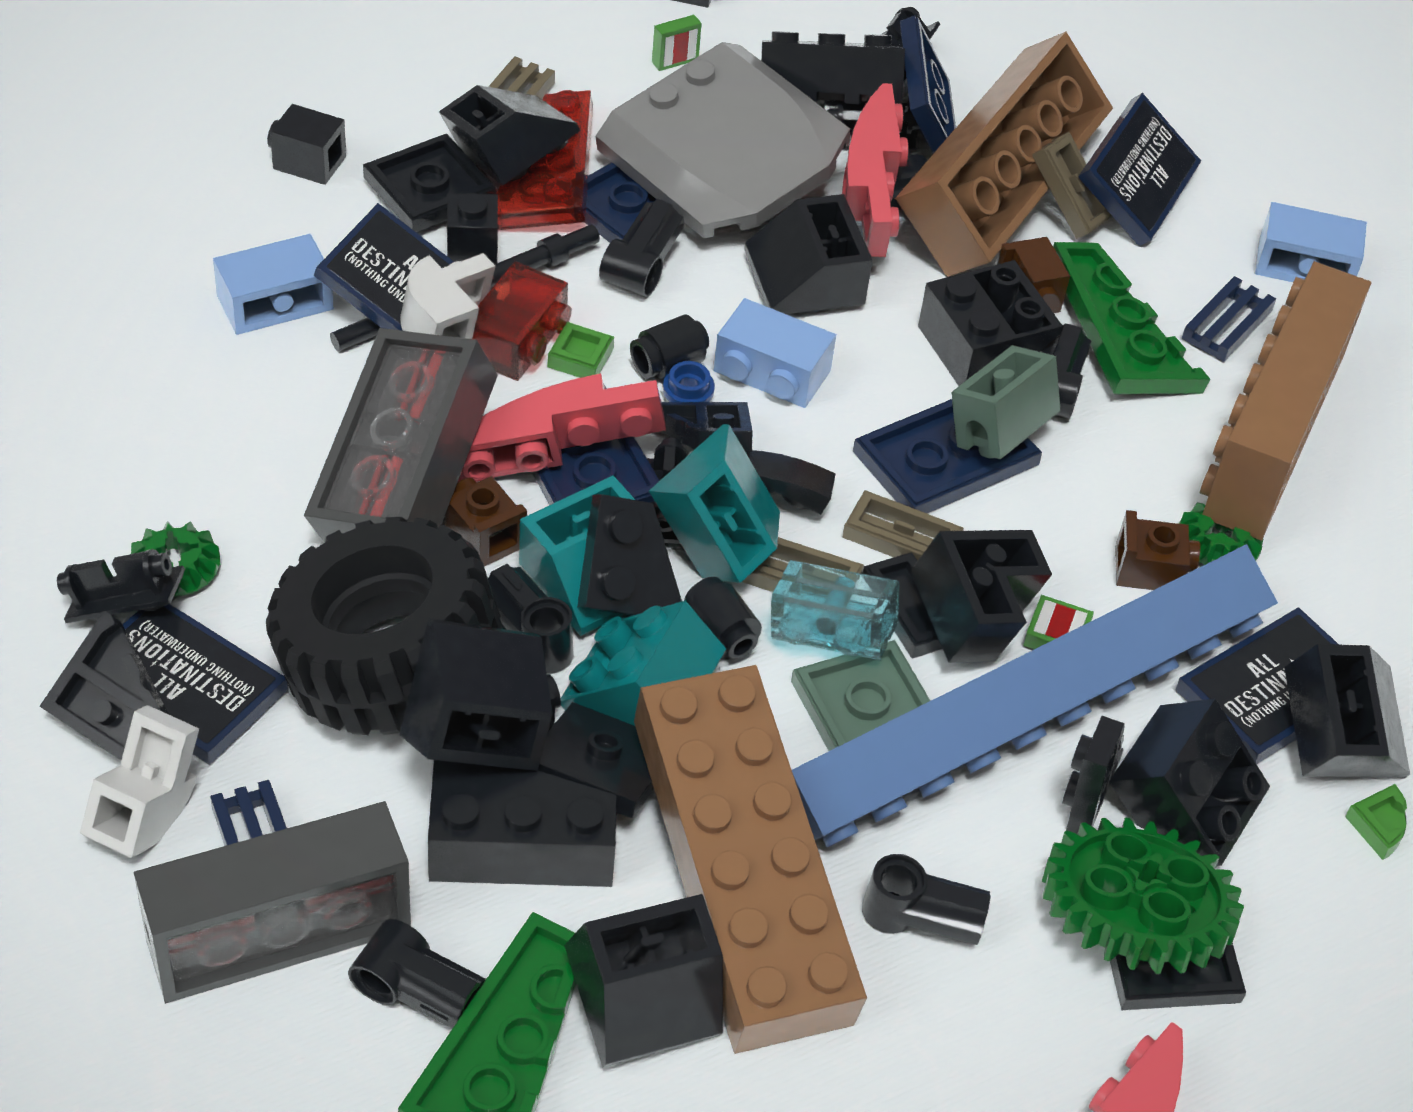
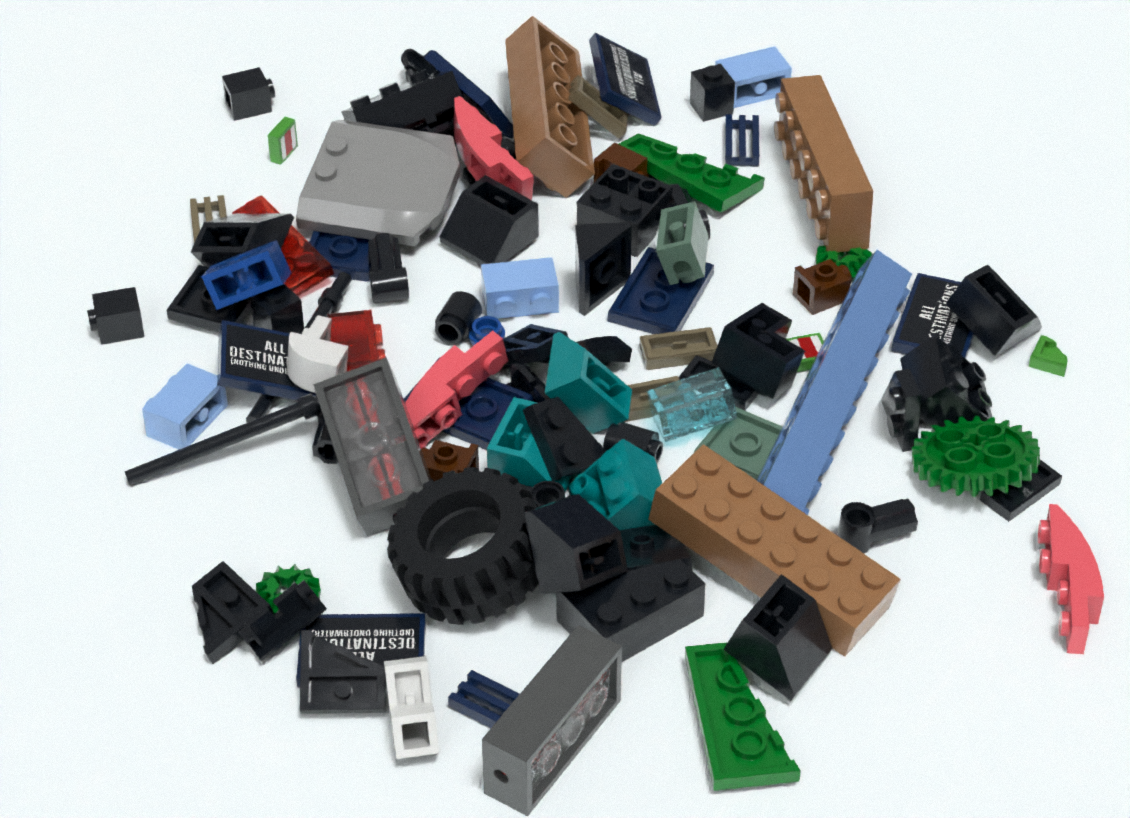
camera: 30 degrees left, 5 degrees down
(91, 527) = (223, 606): none -> black wing
(255, 341) = (307, 407): none -> black bar
(403, 968) = (643, 717): black piece -> none
(455, 166) = (246, 275): none -> blue brick
(580, 351) = (404, 348): bright green tile -> none
(885, 371) = (601, 262): none -> black slope
(1238, 239) = (712, 92): none -> black brick

